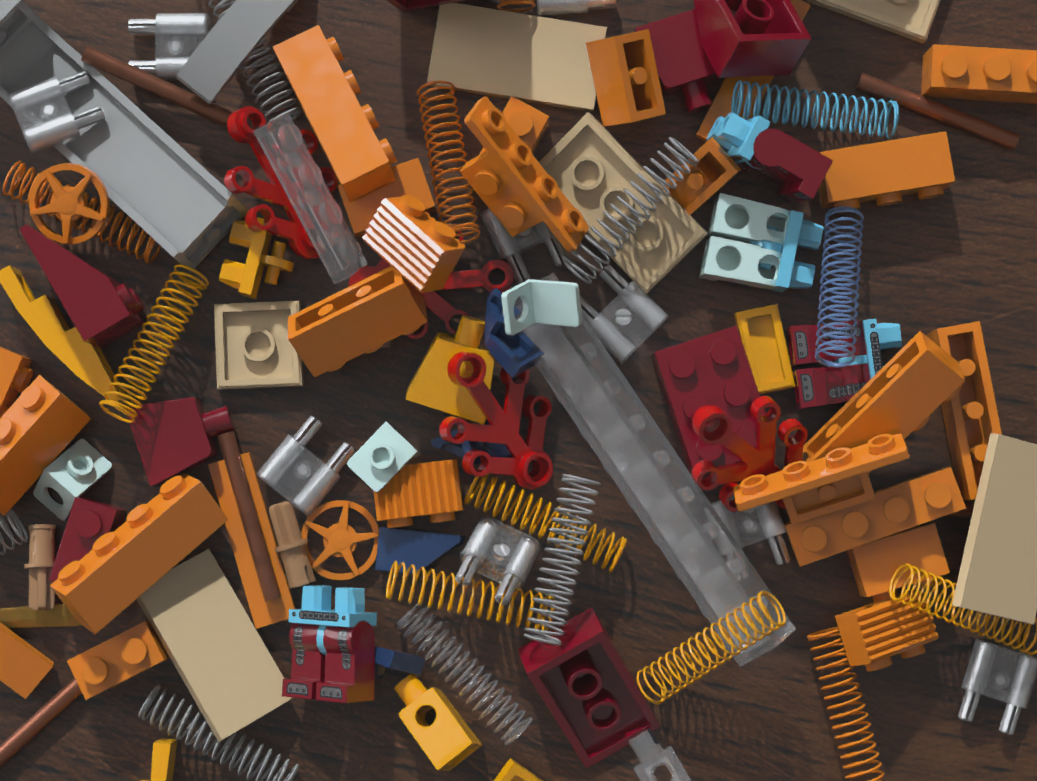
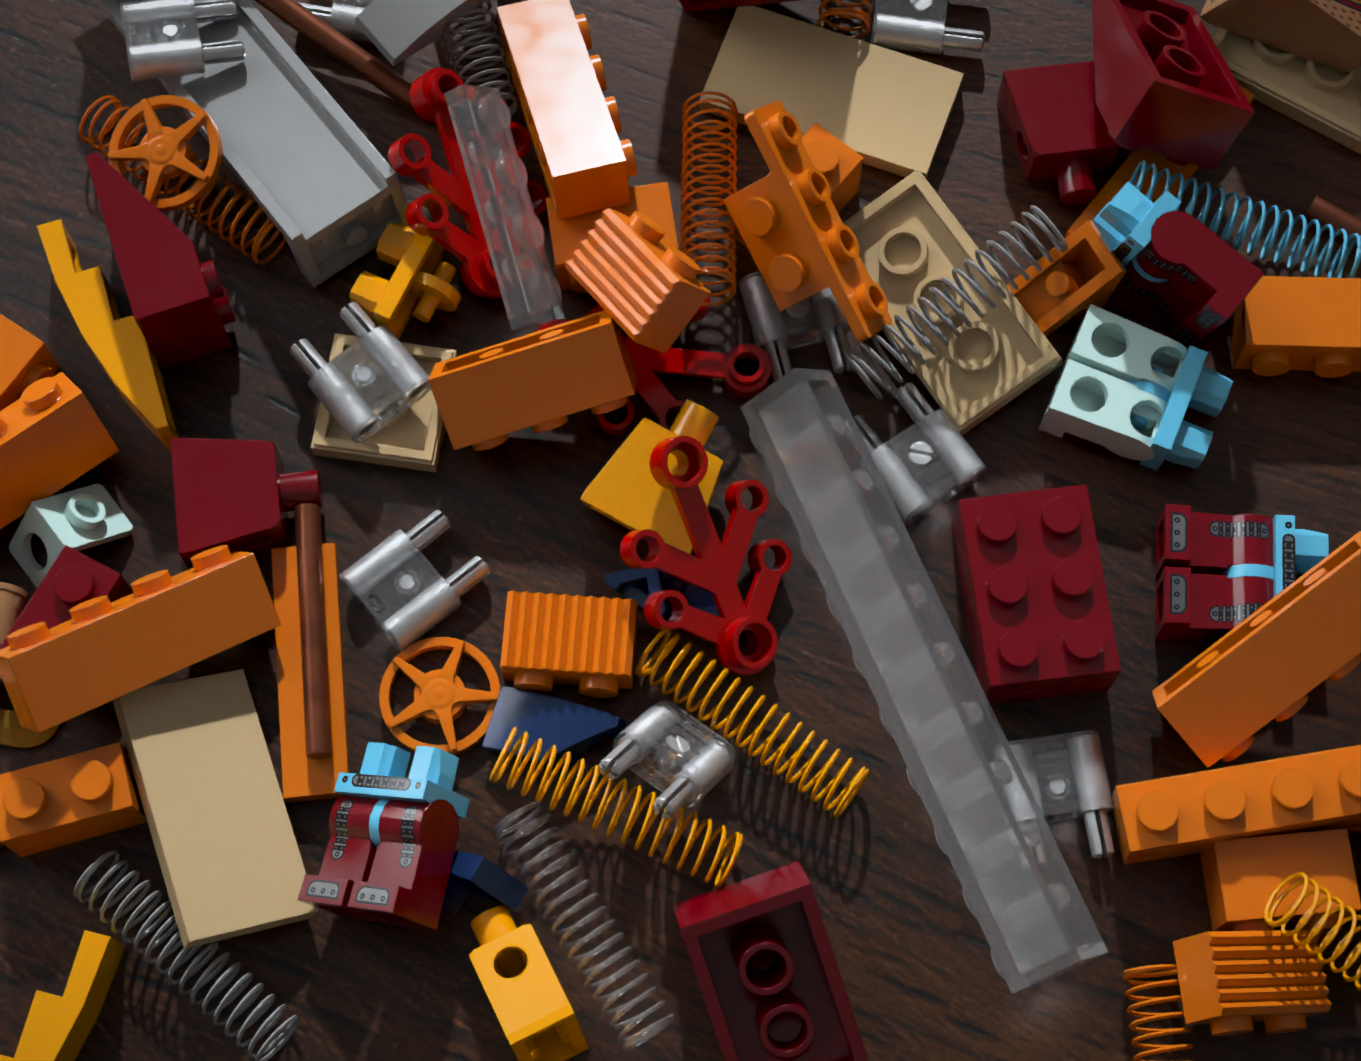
camera: 10 degrees right, 15 degrees down
(194, 286) = (171, 425): light orange piece -> none
(246, 337) = (368, 380): none -> clear piece
(291, 545) = (365, 684): medium nougat axle -> none
(381, 457) = (528, 575): light aqua bracket -> none
(512, 352) = (742, 444): dark blue slope -> none
(542, 303) = (807, 392): light aqua bracket -> none
(543, 634) = (717, 883): light grey piece -> none
(626, 78) = (980, 131): orange brick -> none
(736, 634) = (1016, 925): light orange piece -> none
(754, 460) = (1089, 680): red plant -> none
(765, 348) = (1125, 541): light orange tile -> none
(825, 483) = (1187, 729): orange bracket -> none
(843, 278) = (1221, 458): medium blue piece -> none

